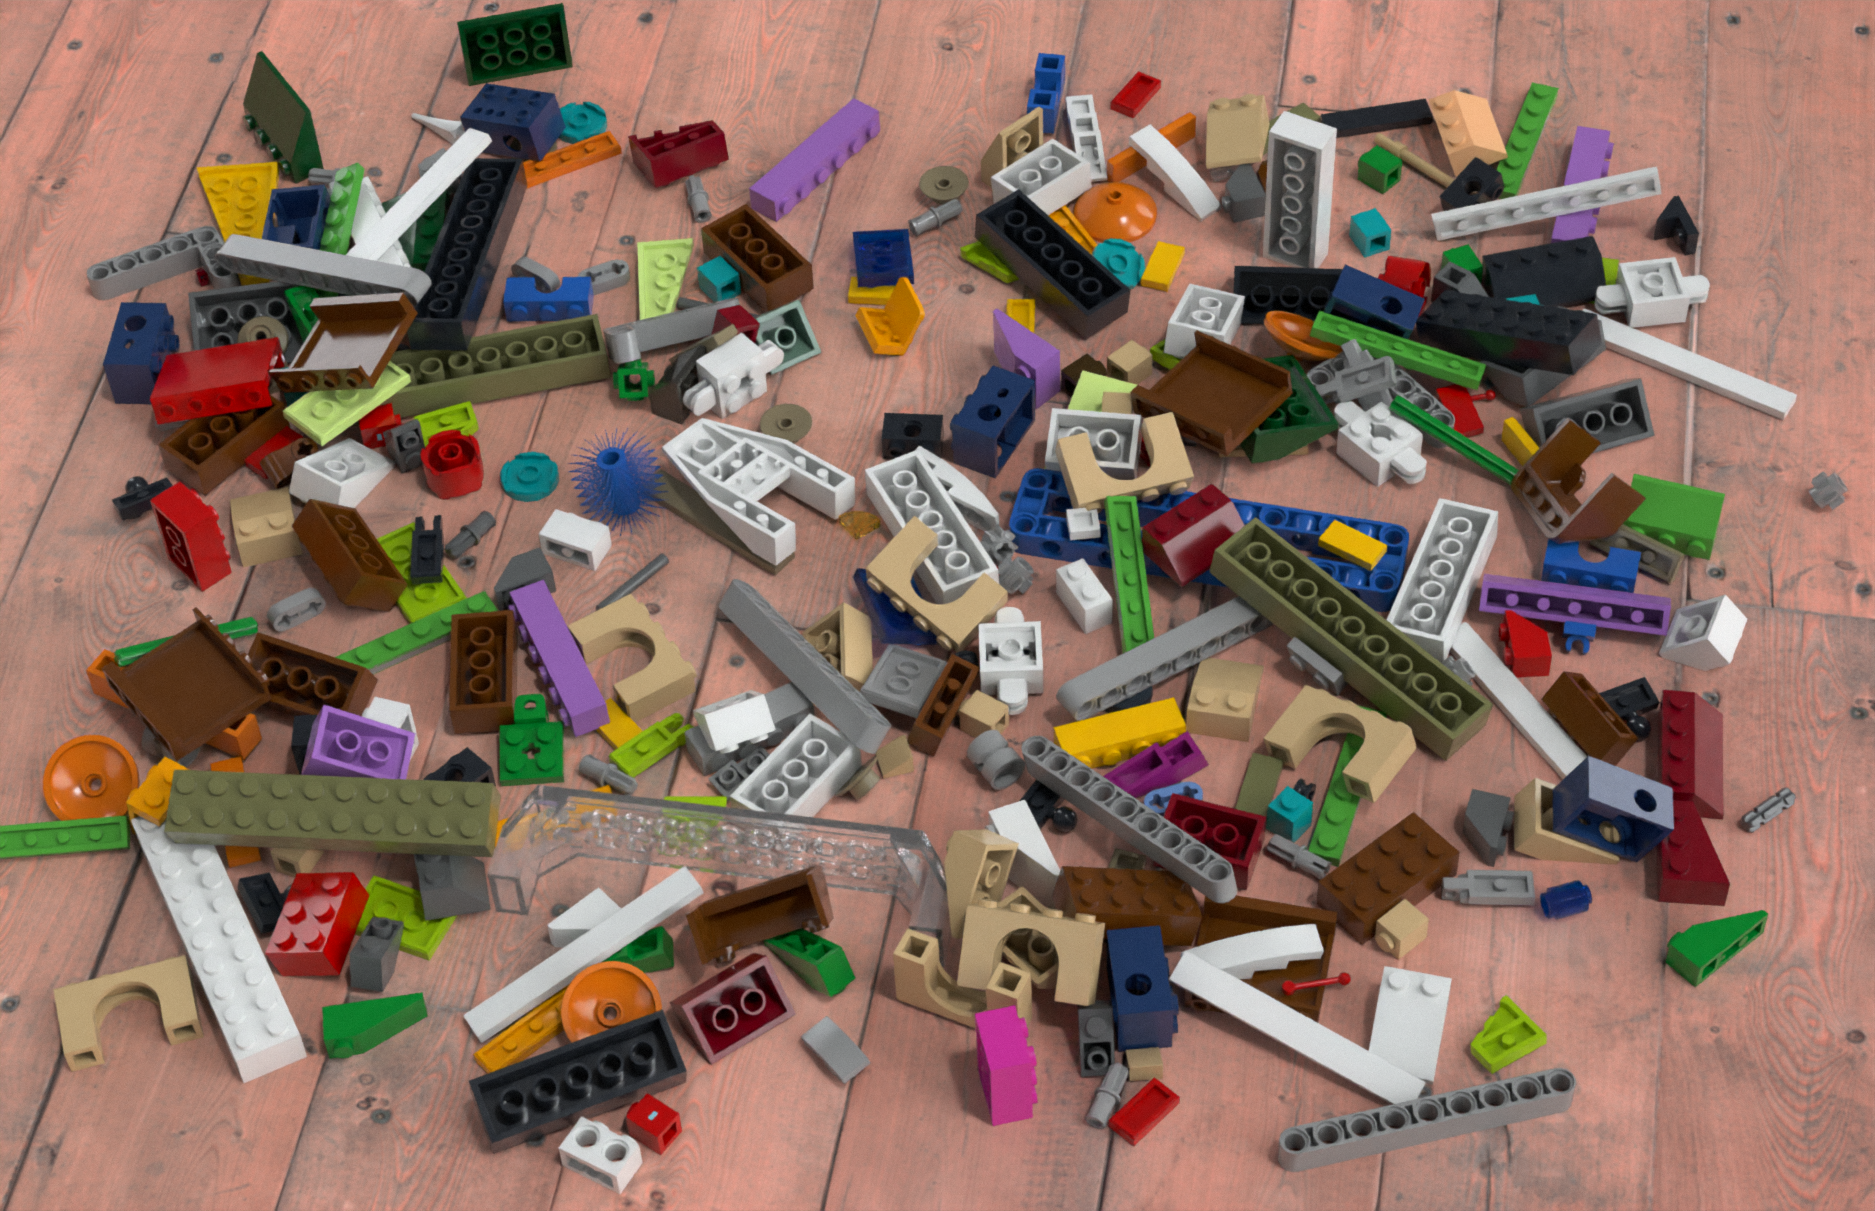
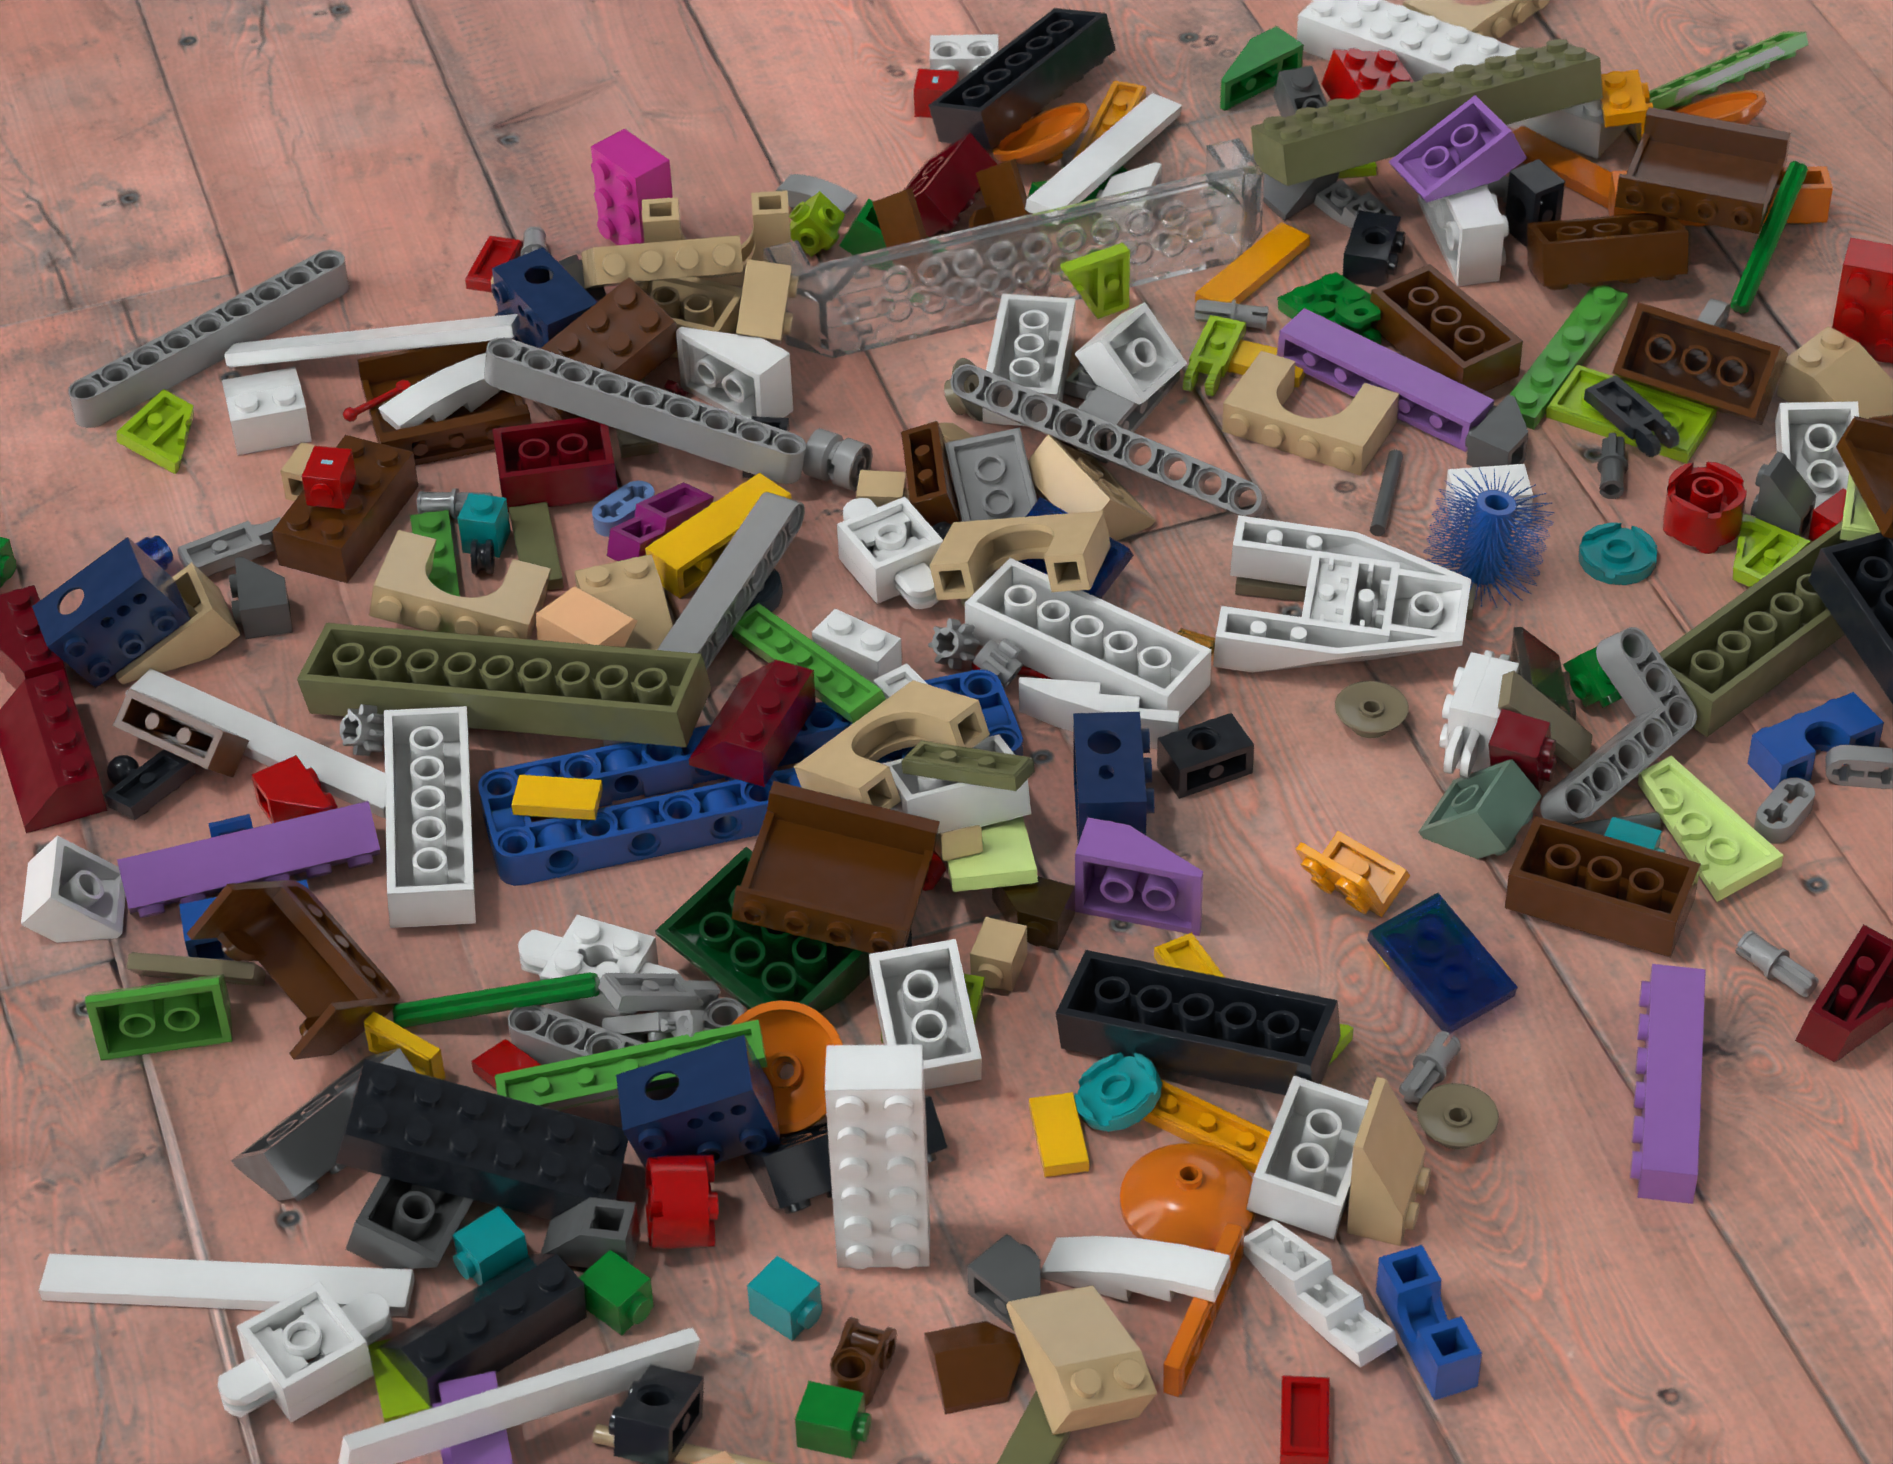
camera: 150 degrees right, 5 degrees down
(861, 1003) = (816, 224): none -> lime brick
(1084, 418) = (968, 765): none -> olive tile
(1267, 671) = (583, 620): none -> light nougat slope
(1350, 188) = (862, 1357): none -> reddish brown piece
(1401, 849) = (329, 477): none -> red brick

